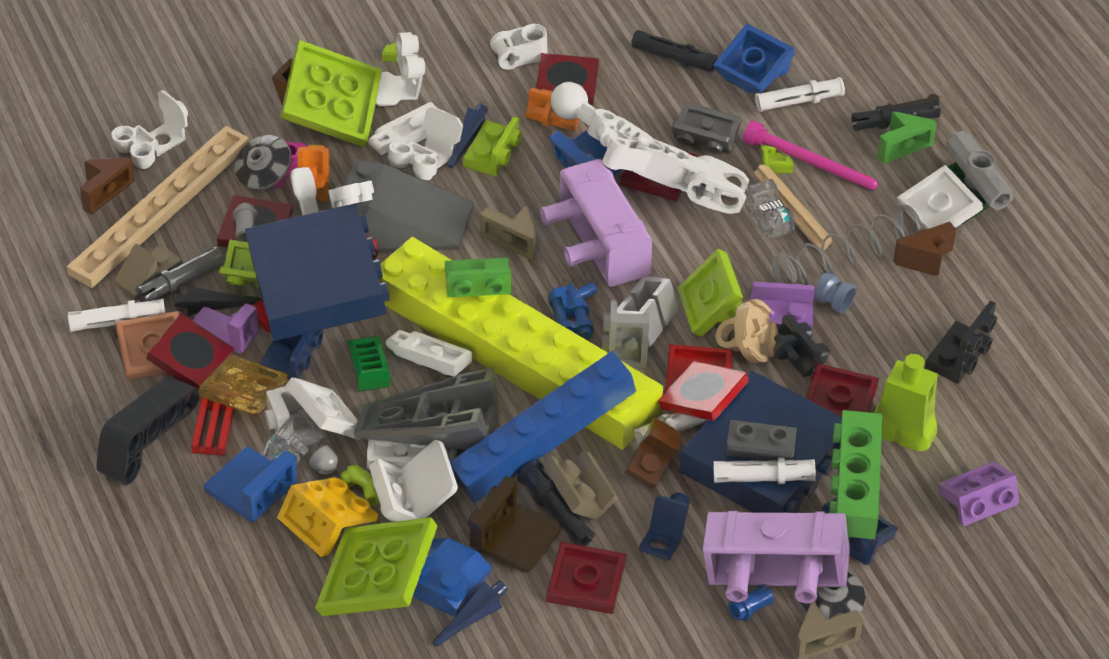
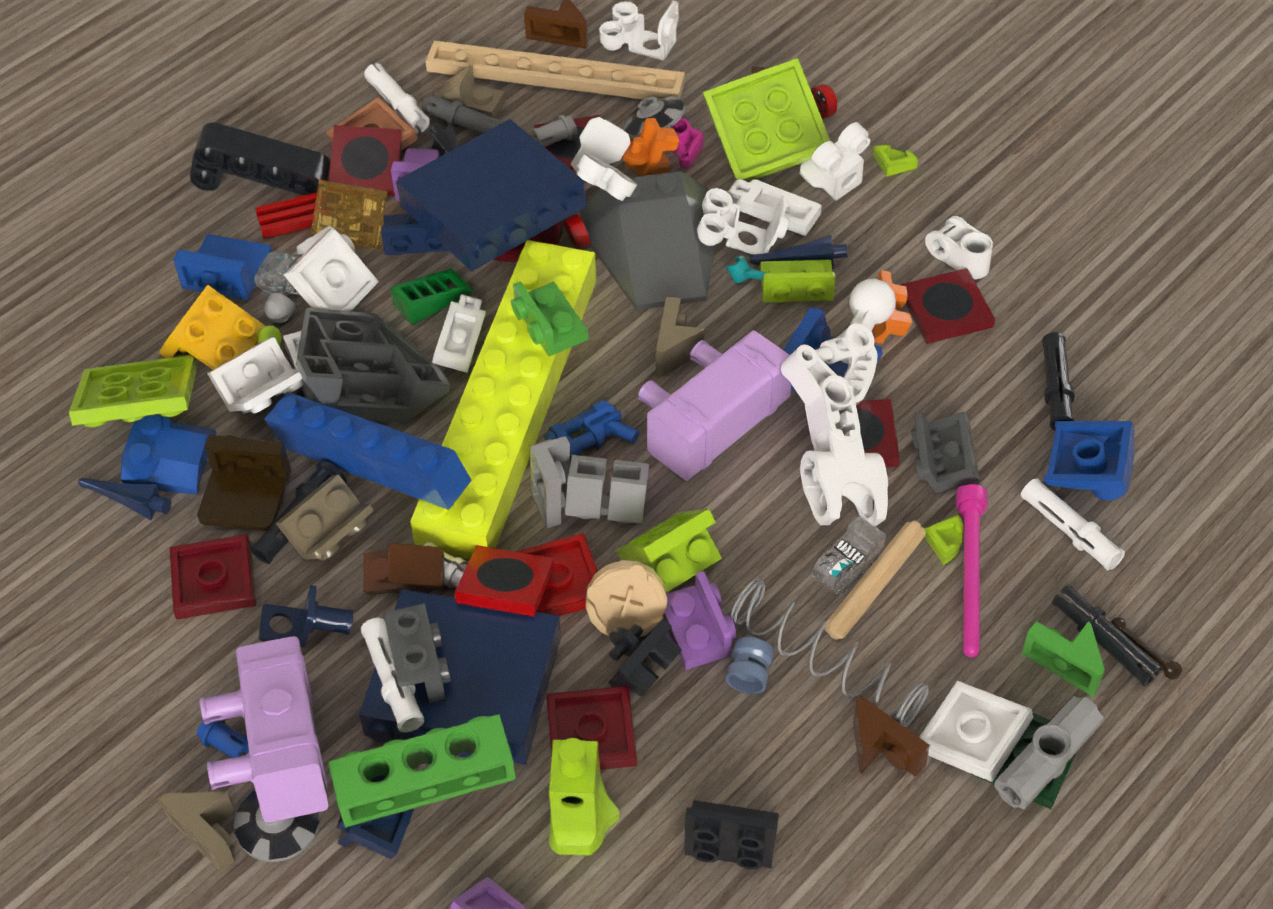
camera: 70 degrees right, 5 degrees up
(464, 174) = (741, 271): none -> teal hand

